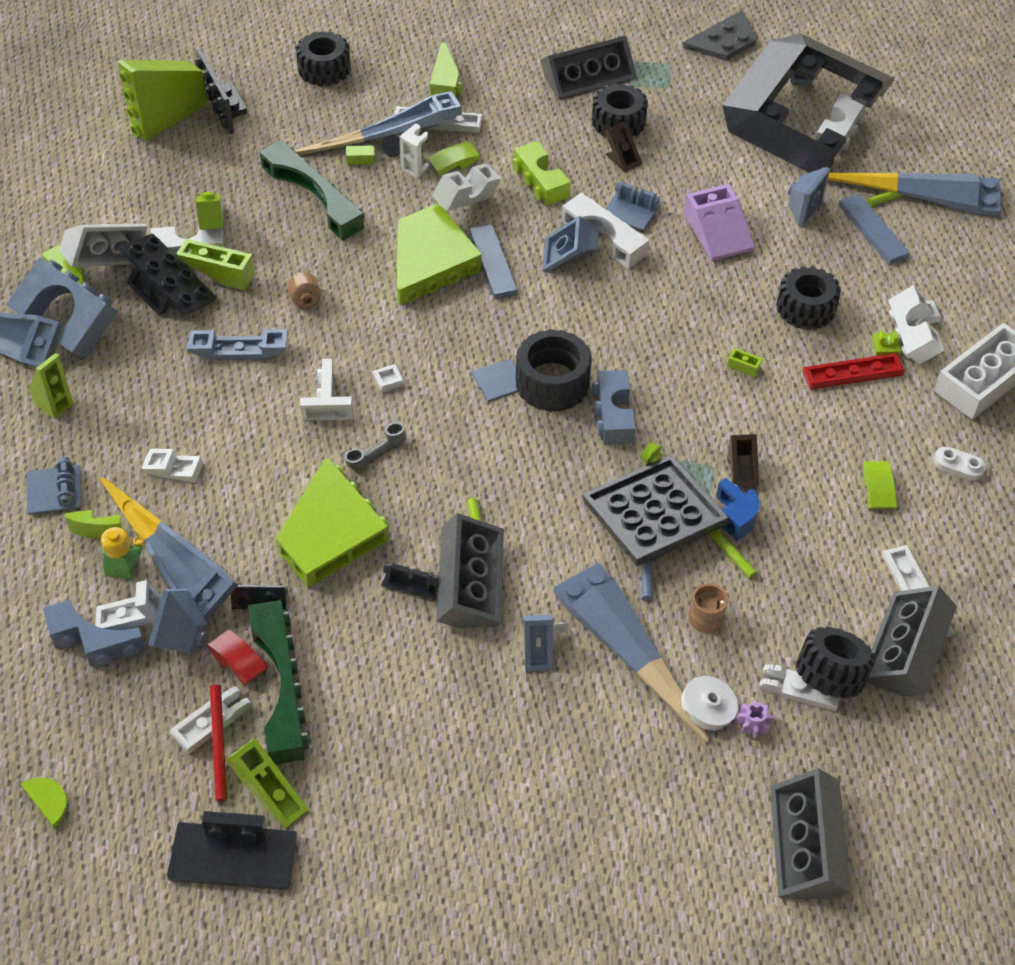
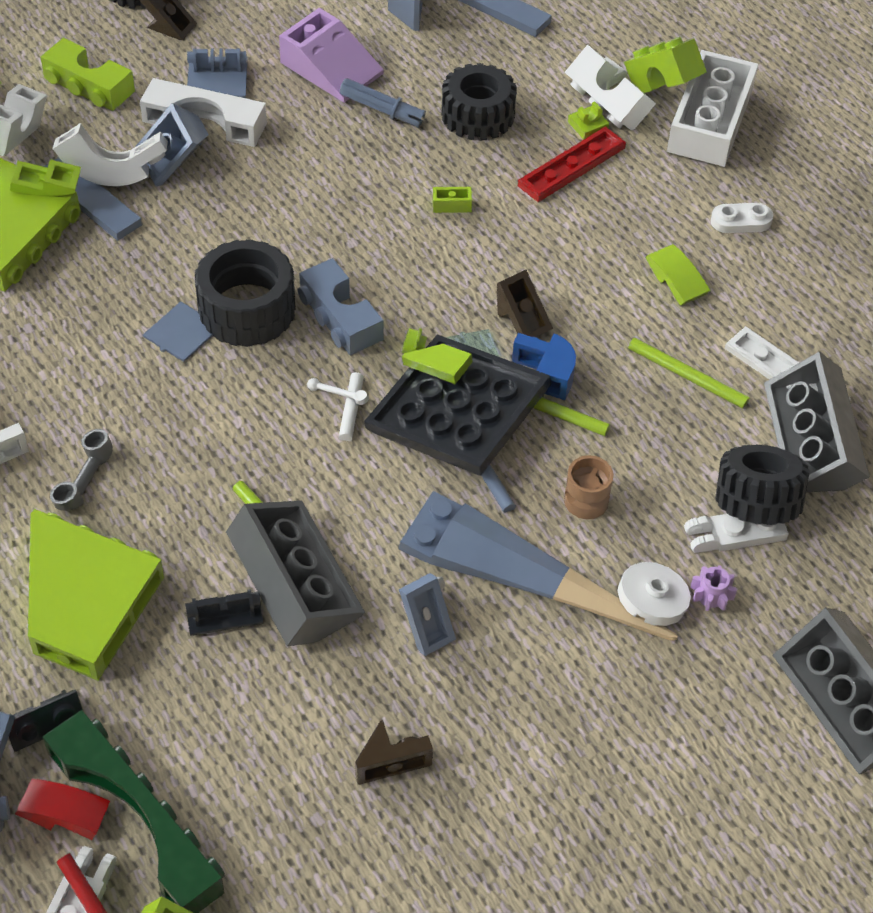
camera: 30 degrees left, 0 degrees up
(388, 378) = (45, 384): white tile -> none
(452, 724) = (384, 760): none -> dark brown slope
(463, 238) = (43, 181): none -> lime slope
(512, 243) = (106, 166): none -> white arch
(580, 481) = (350, 408): none -> white piece
(588, 475) = (360, 396): none -> white hinge
(658, 474) = (439, 361): none -> lime tile
(735, 269) = (382, 102): none -> sand blue axle
(841, 560) = (688, 373): none -> lime bar
(964, 323) = (664, 64): none -> lime arch

